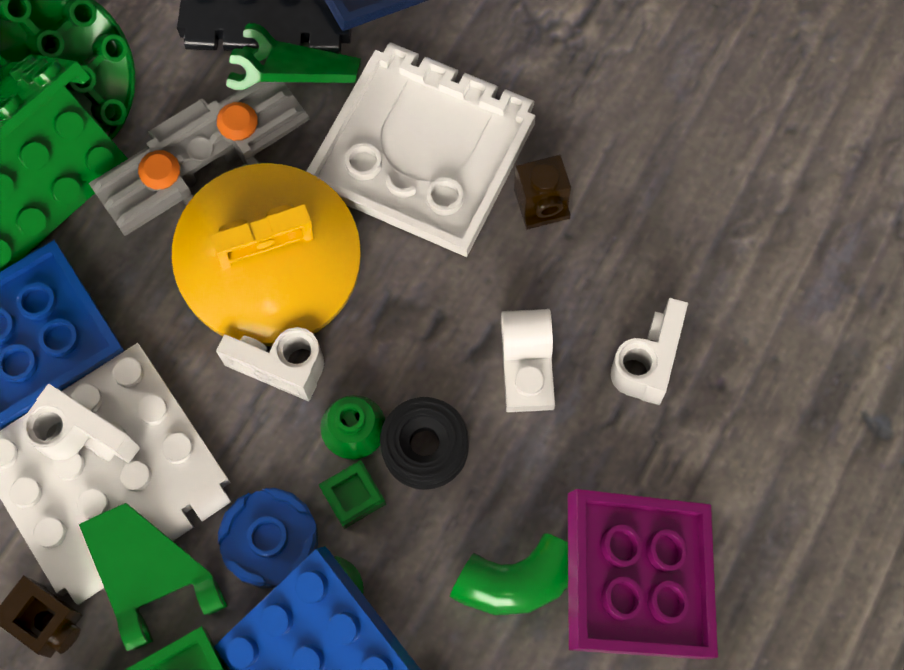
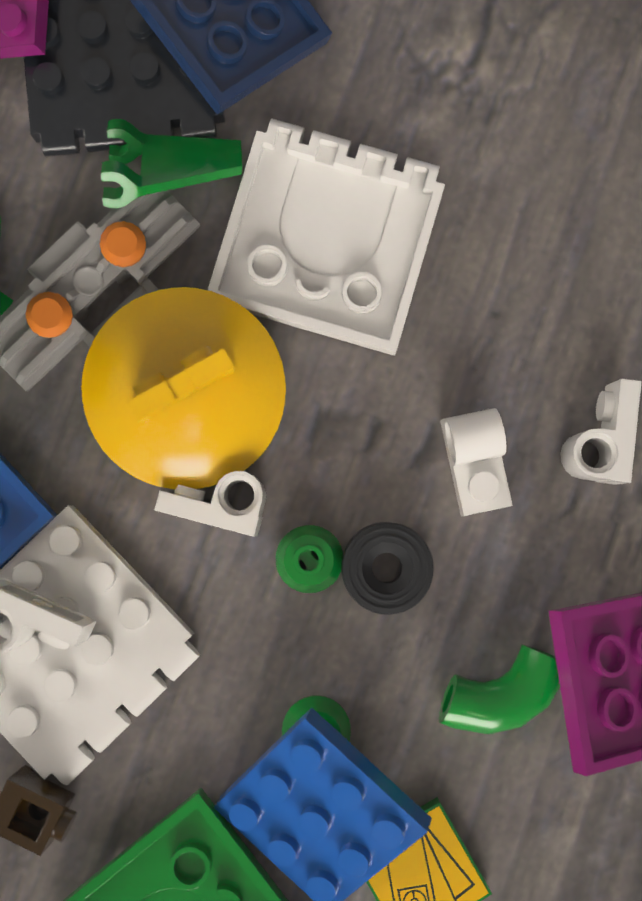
camera: 10 degrees left, 15 degrees up
(143, 566) = (125, 742): green flag -> none
(266, 536) = (244, 687): blue tile -> none
(352, 494) = (321, 629): green tile -> none
(542, 191) = (466, 272): dark brown brick -> none

